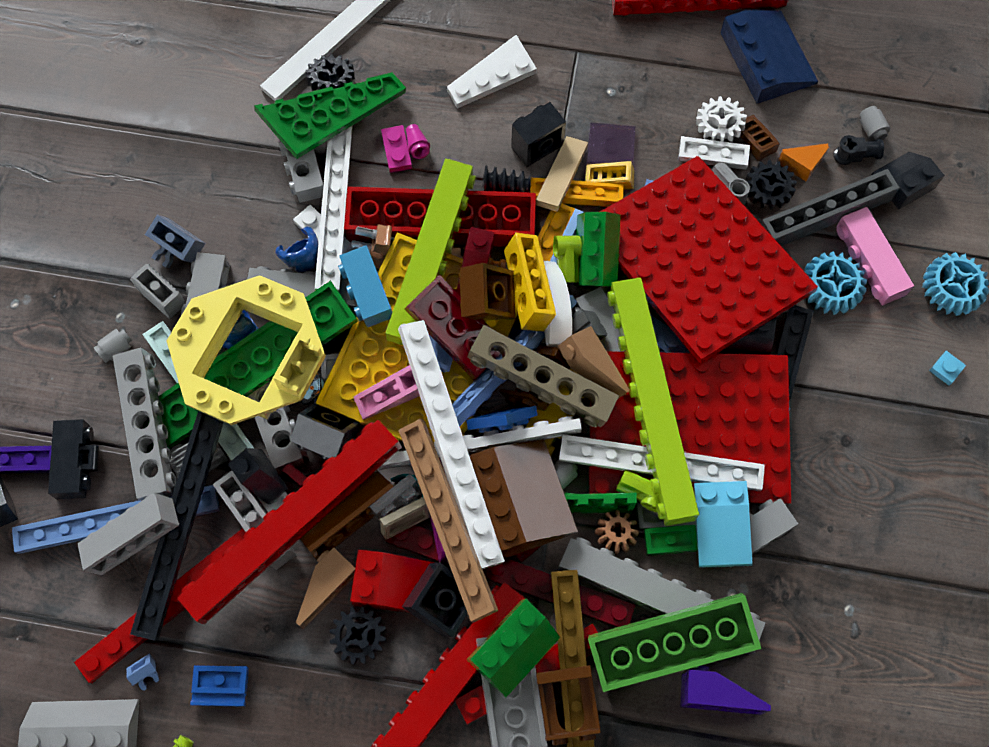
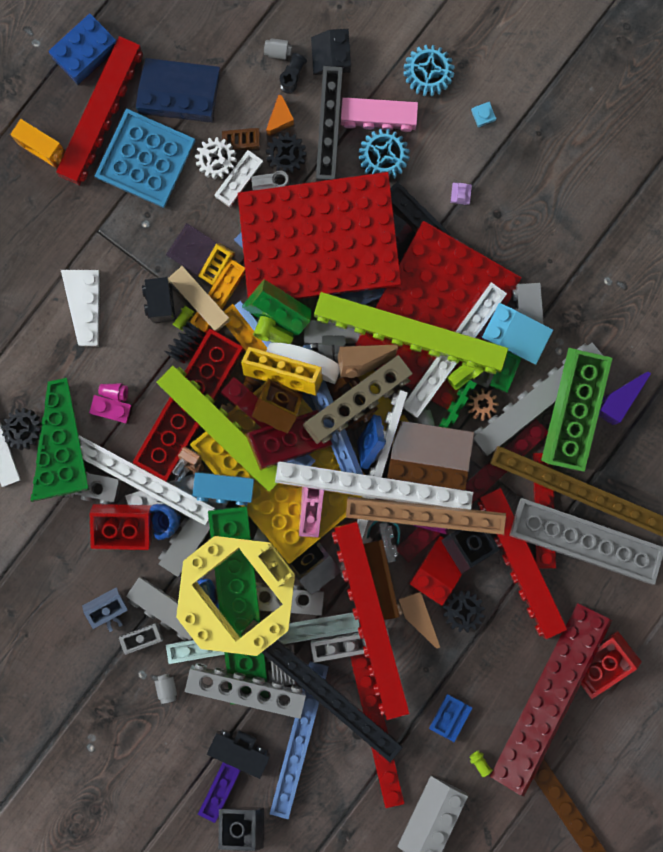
camera: 65 degrees left, 15 degrees up
(128, 534) = (320, 735): light grey brick -> none
(141, 669) = (414, 765): medium blue tile -> none
(258, 474) = (322, 627): black slope -> none
(271, 210) = (120, 527): none -> red brick
(294, 475) = (333, 602): dark red tile -> none
(404, 518) = (403, 543): dark tan tile -> none
(514, 647) = (529, 515): green slope -> none
(537, 170) = (183, 317): none -> lime pin
(591, 720) = (593, 515): reddish brown panel -> none
(678, 56) = (145, 158): none -> dark azure plate
(843, 387) = (461, 193): none -> lavender tile

